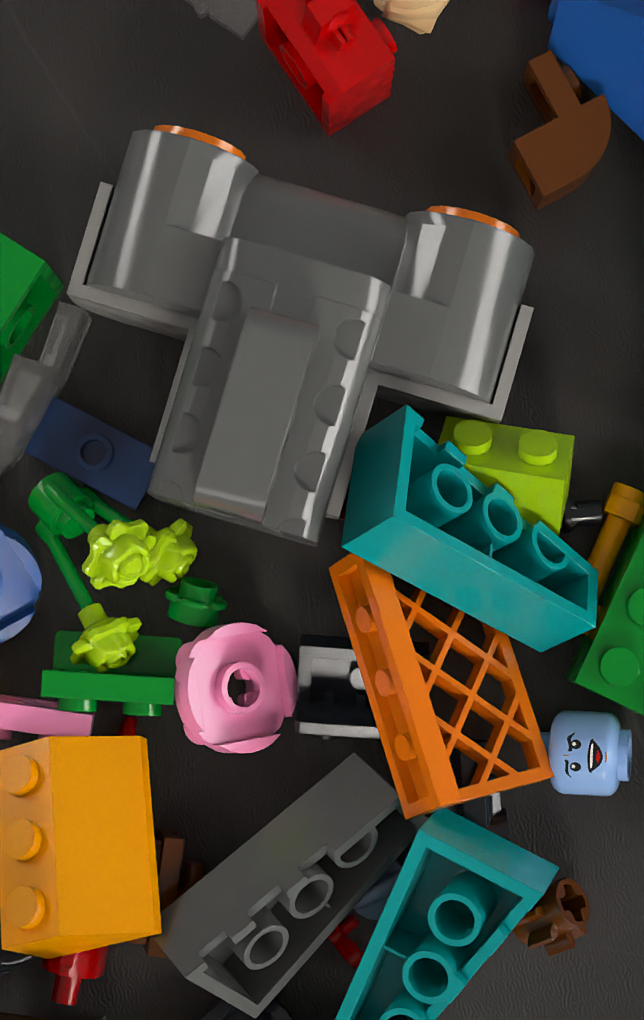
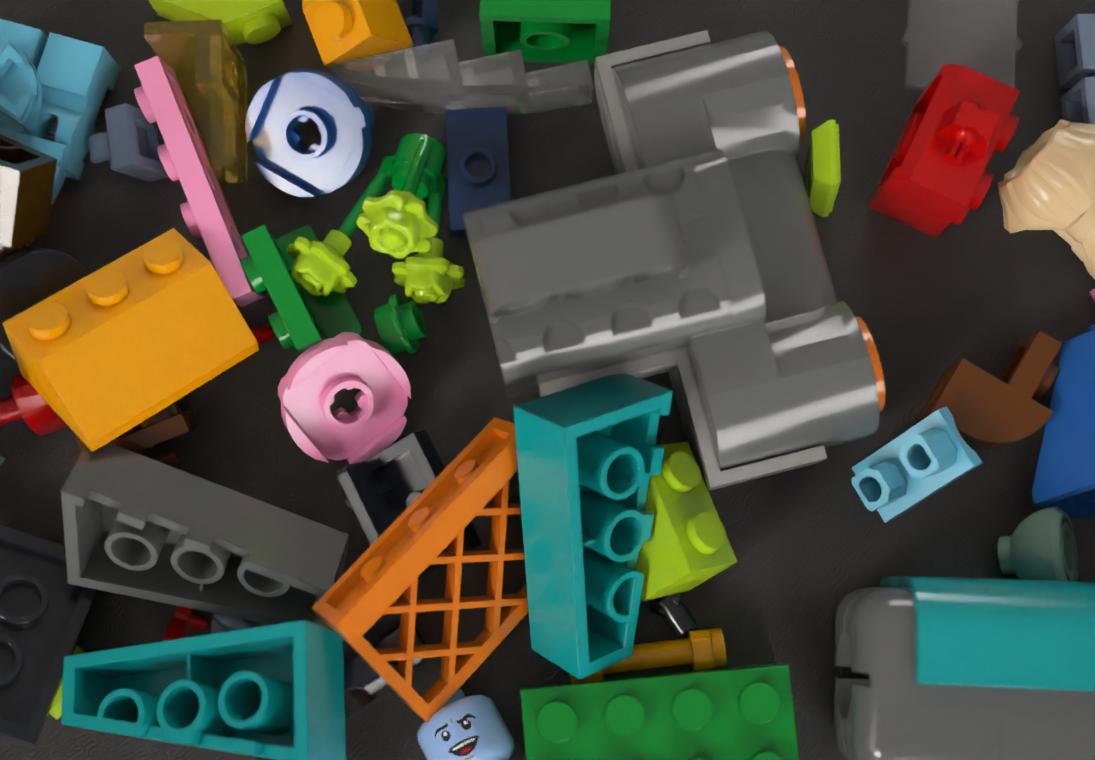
camera: 60 degrees right, 5 degrees down
(280, 156) = (823, 168): none -> lime tile
(578, 238) = (914, 466): none -> medium azure hips

